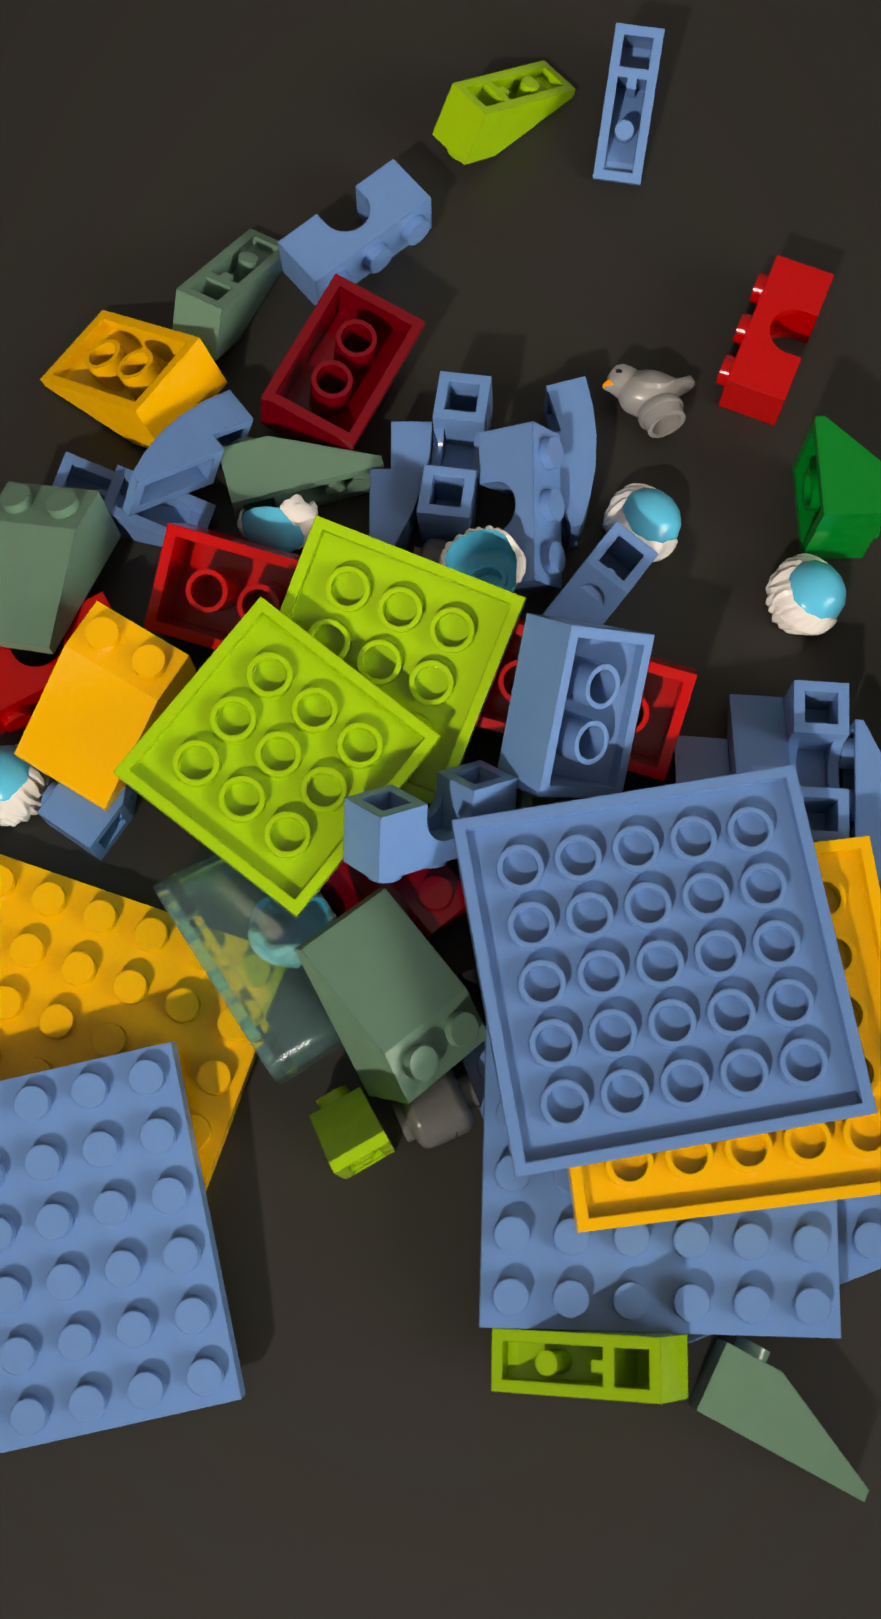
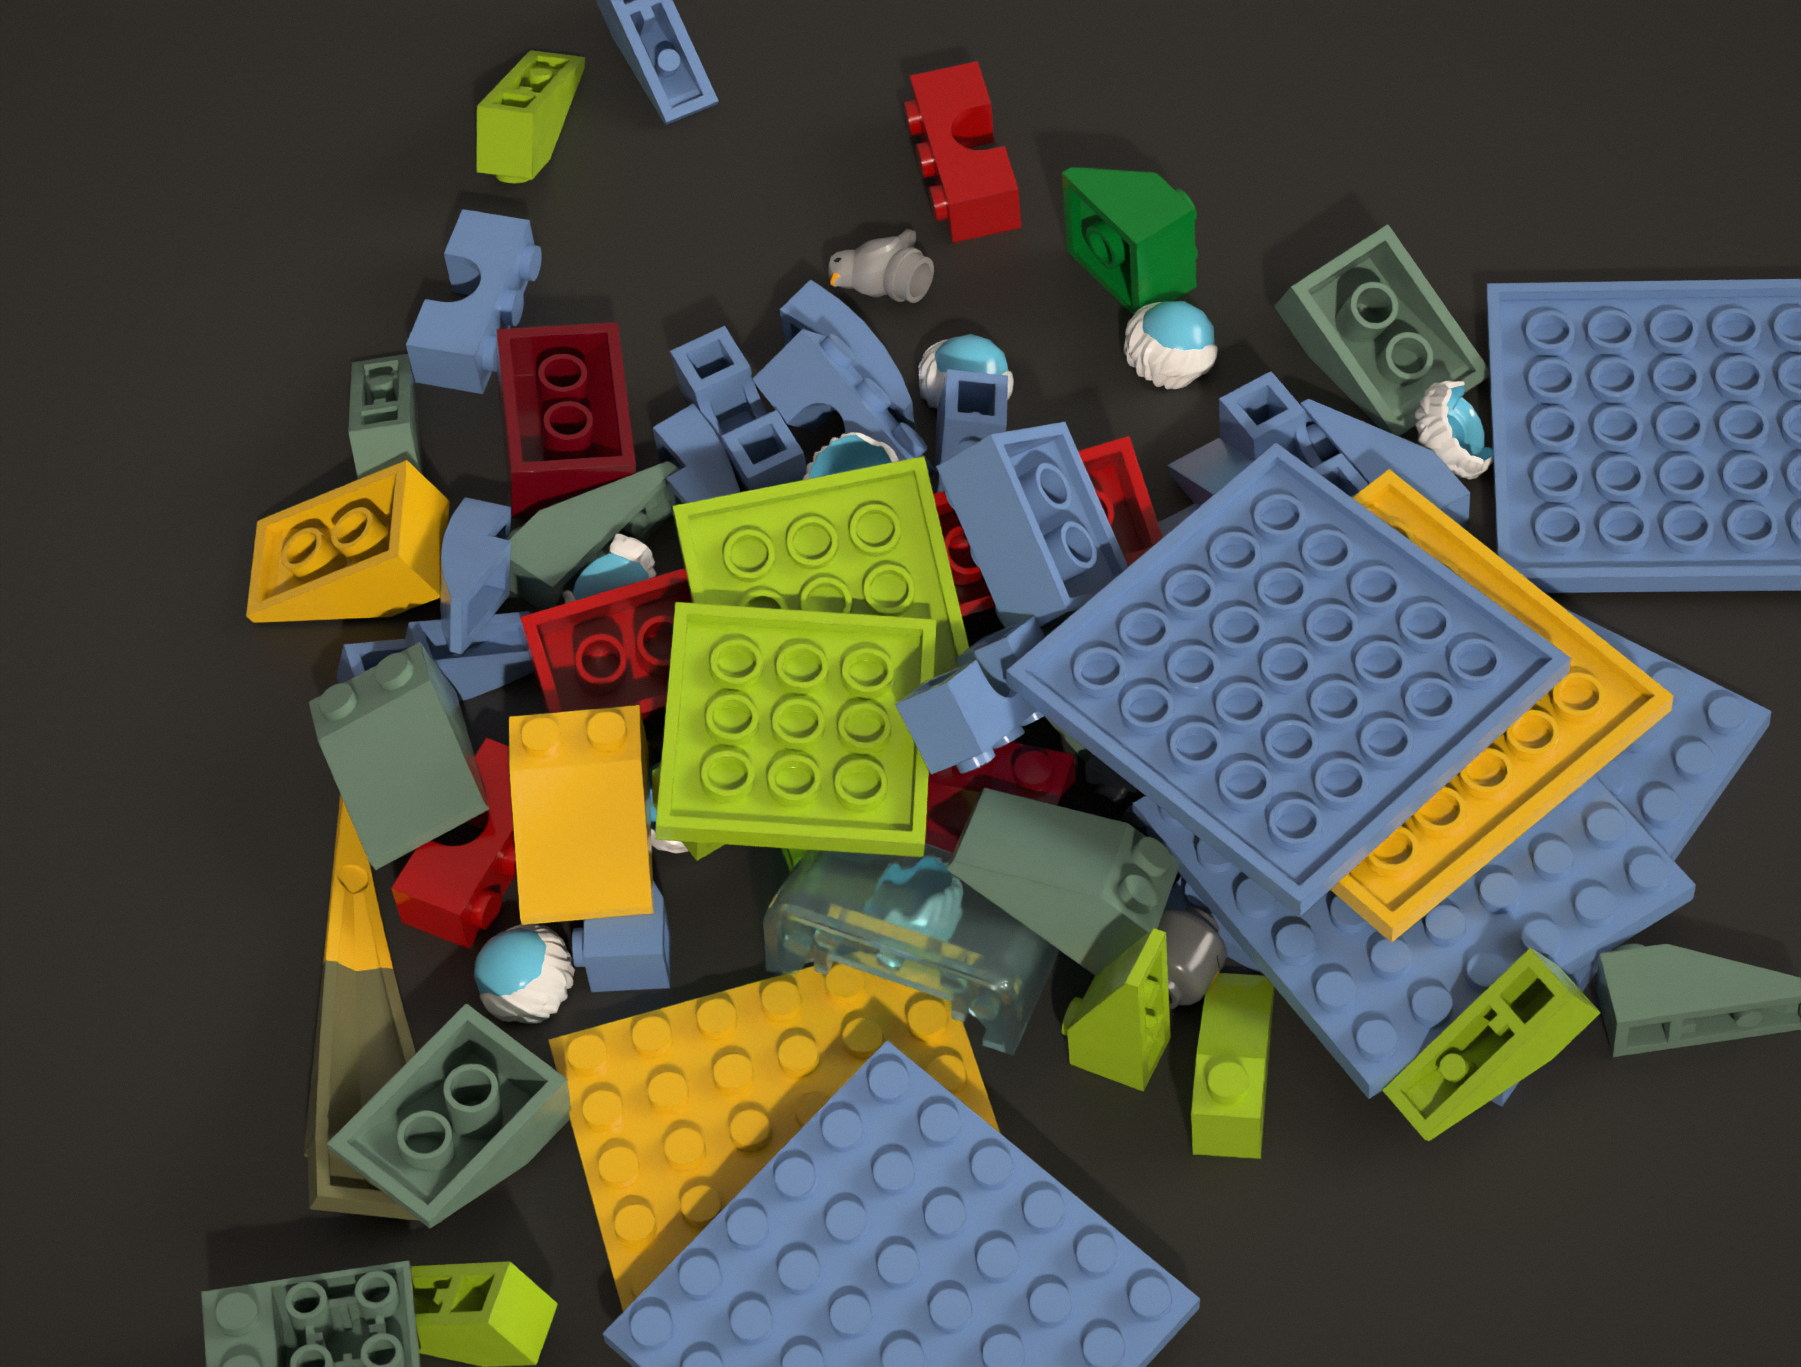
camera: 30 degrees left, 20 degrees down
(414, 1213) = (1232, 1067): none -> lime slope

